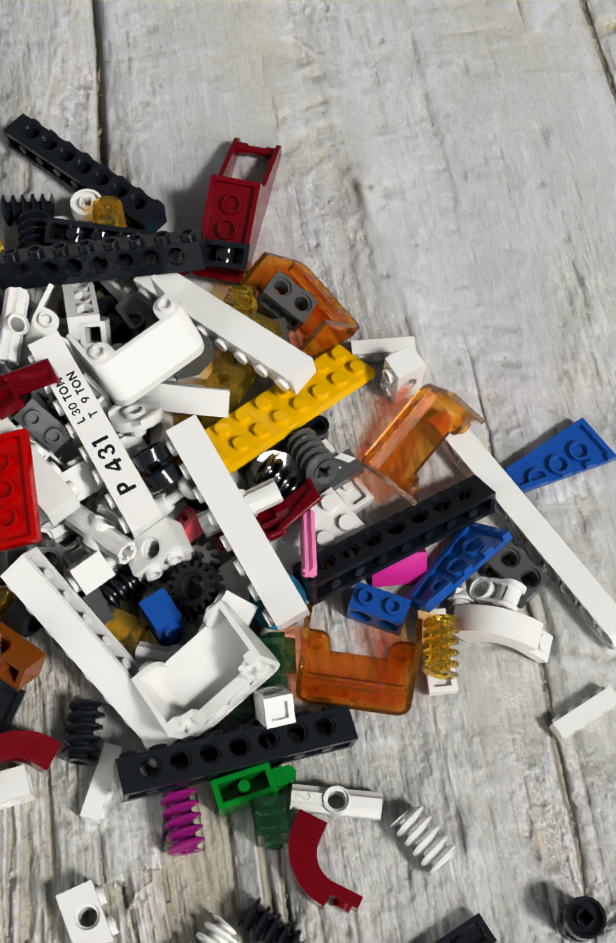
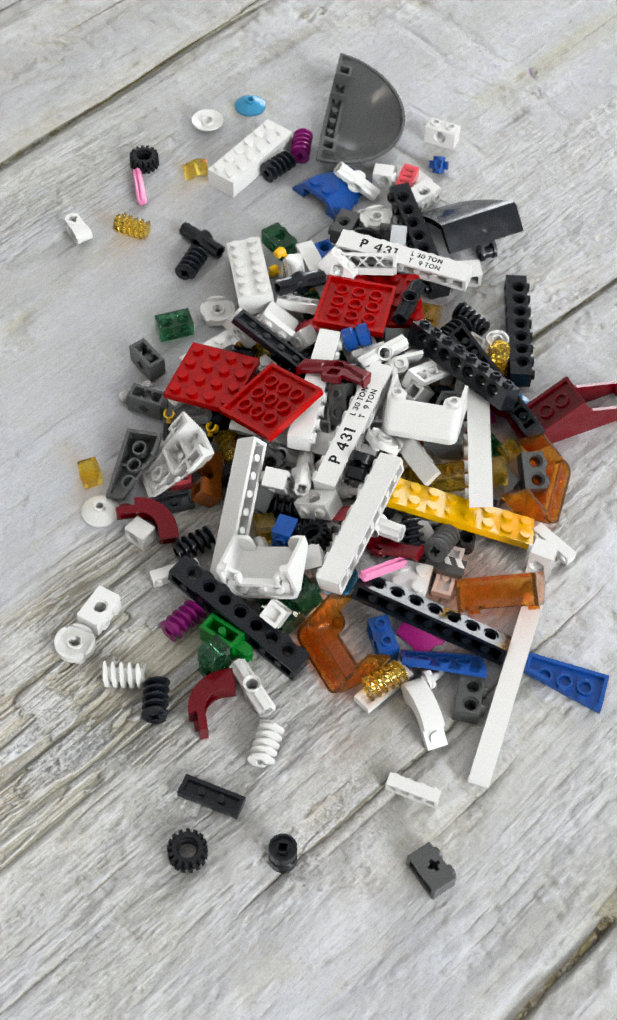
camera: 55 degrees right, 10 degrees down
(497, 592) = (443, 690): white piece -> none

